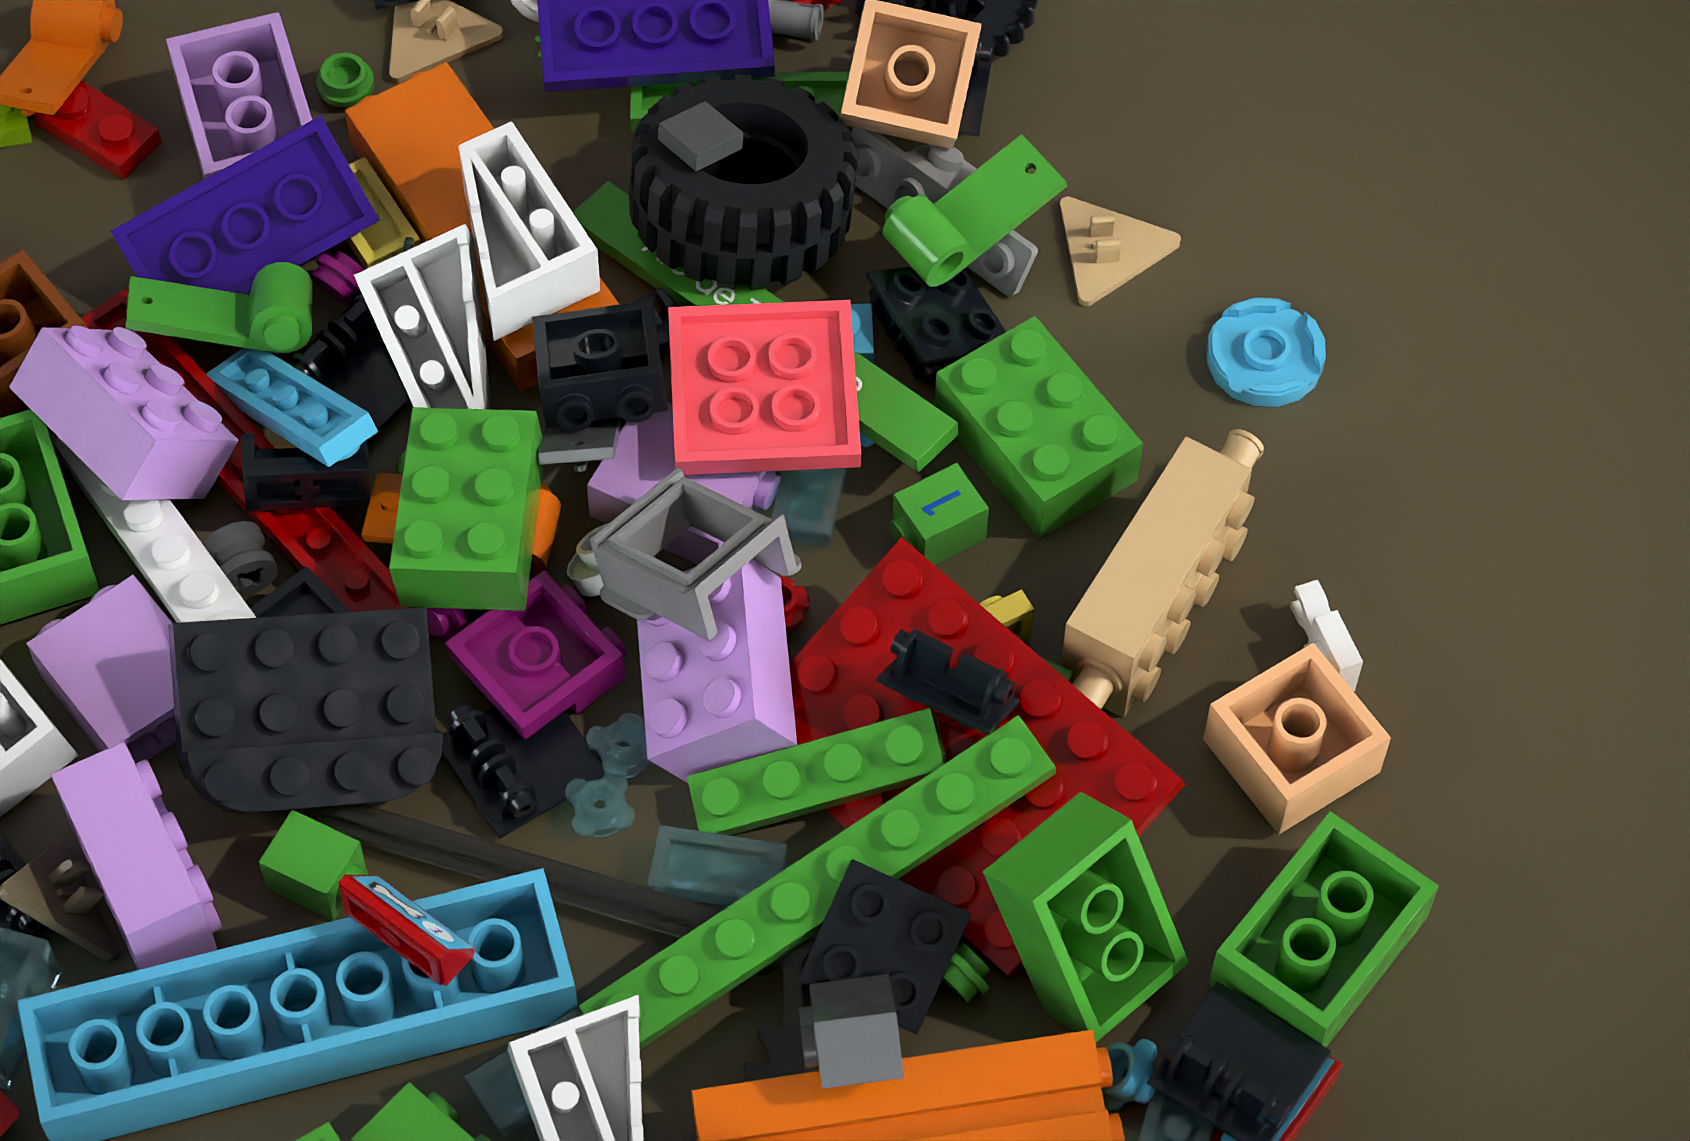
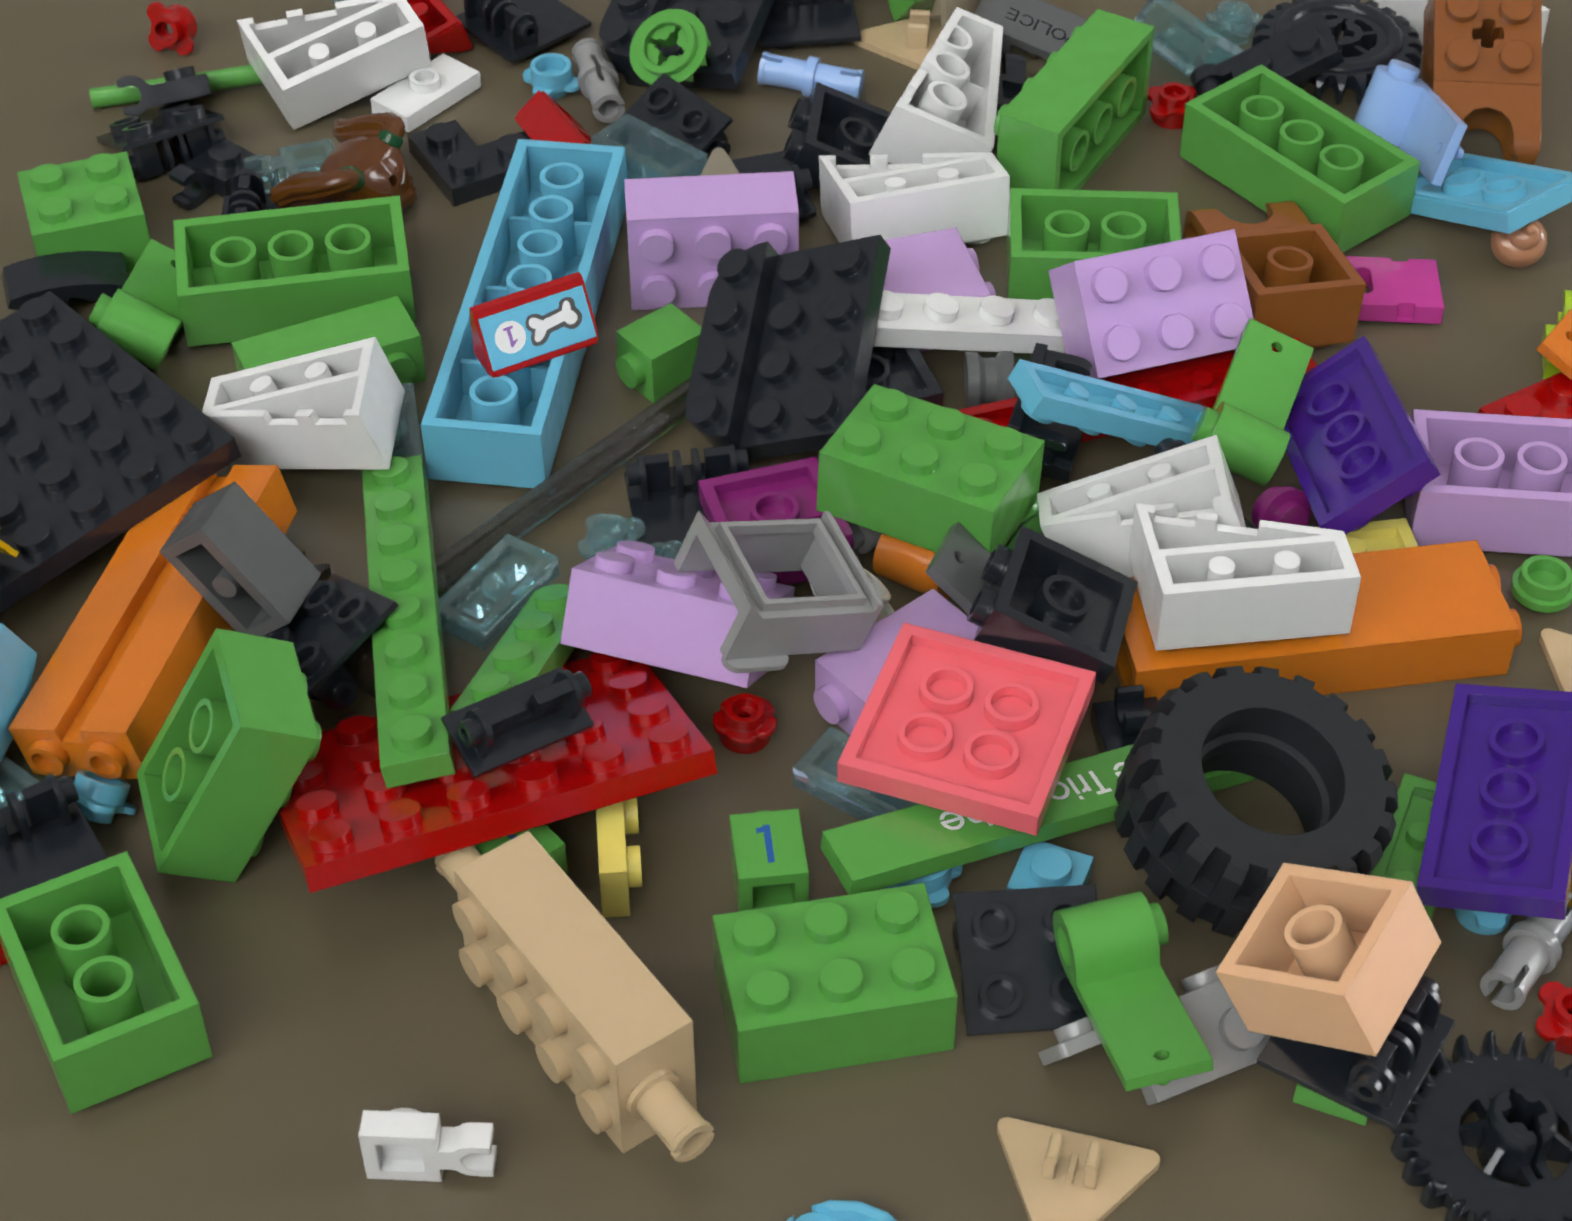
camera: 115 degrees right, 15 degrees down
(700, 136) = (1282, 714): dark grey tile -> none
(1296, 738) = (316, 1047): light nougat brick -> none

